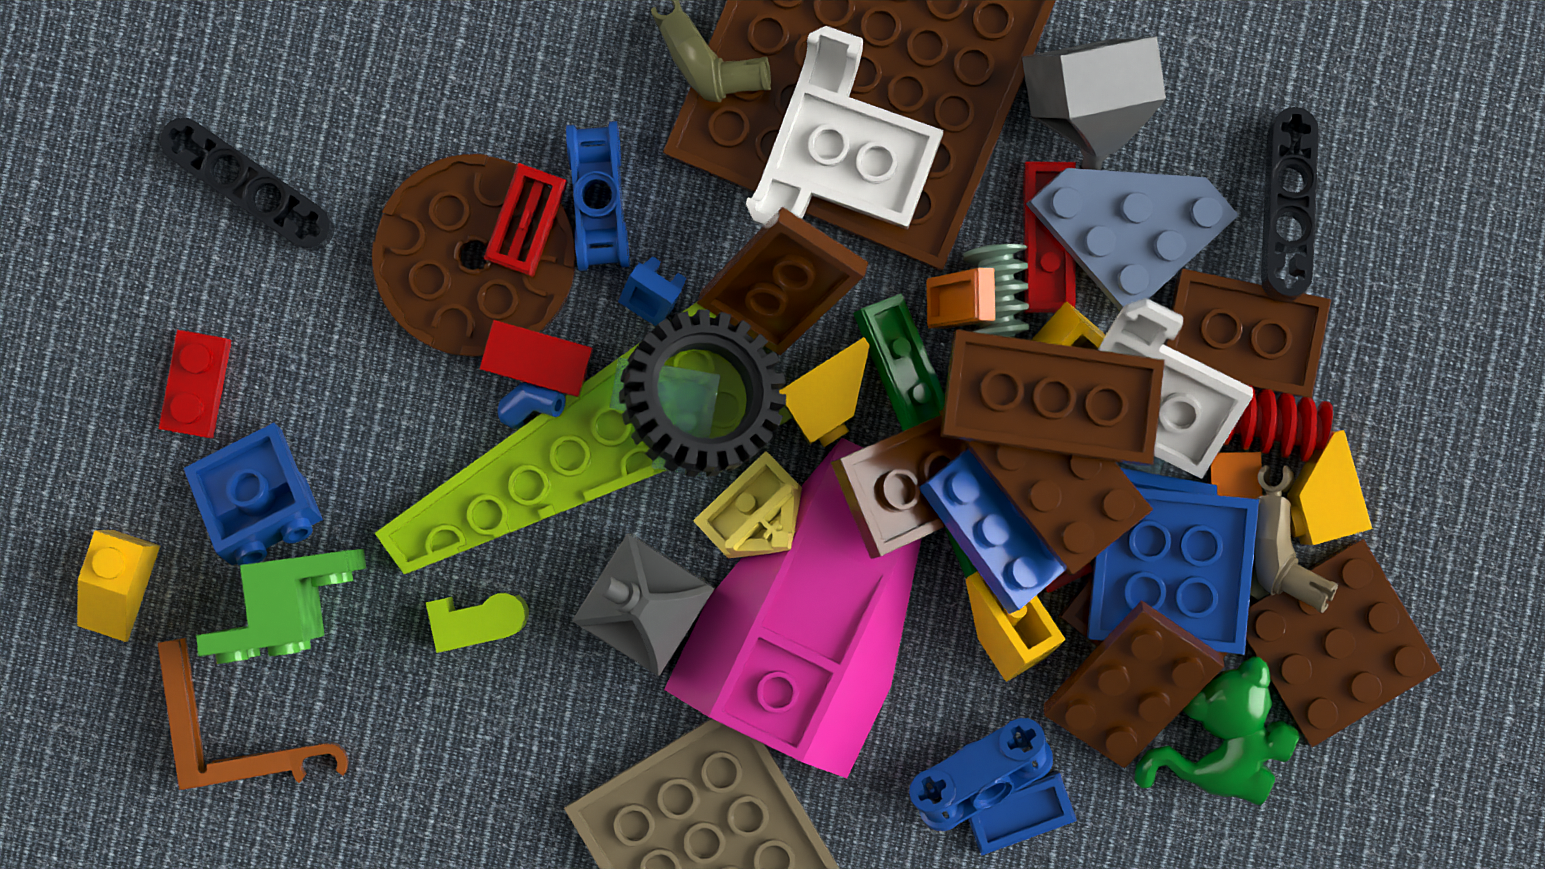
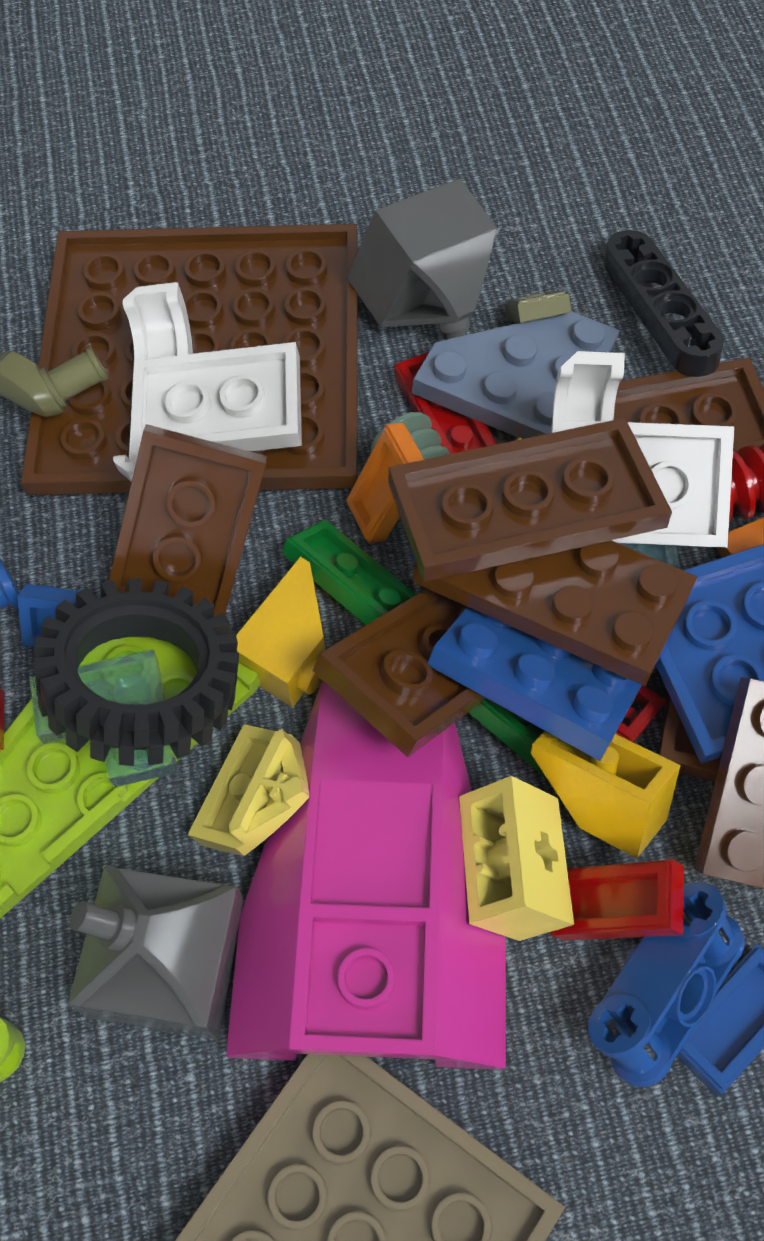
camera: 15 degrees left, 25 degrees down
(918, 648) = (515, 860): none -> light yellow brick
(974, 707) = (625, 901): none -> red tile
(1178, 159) = (538, 306): none -> olive tile

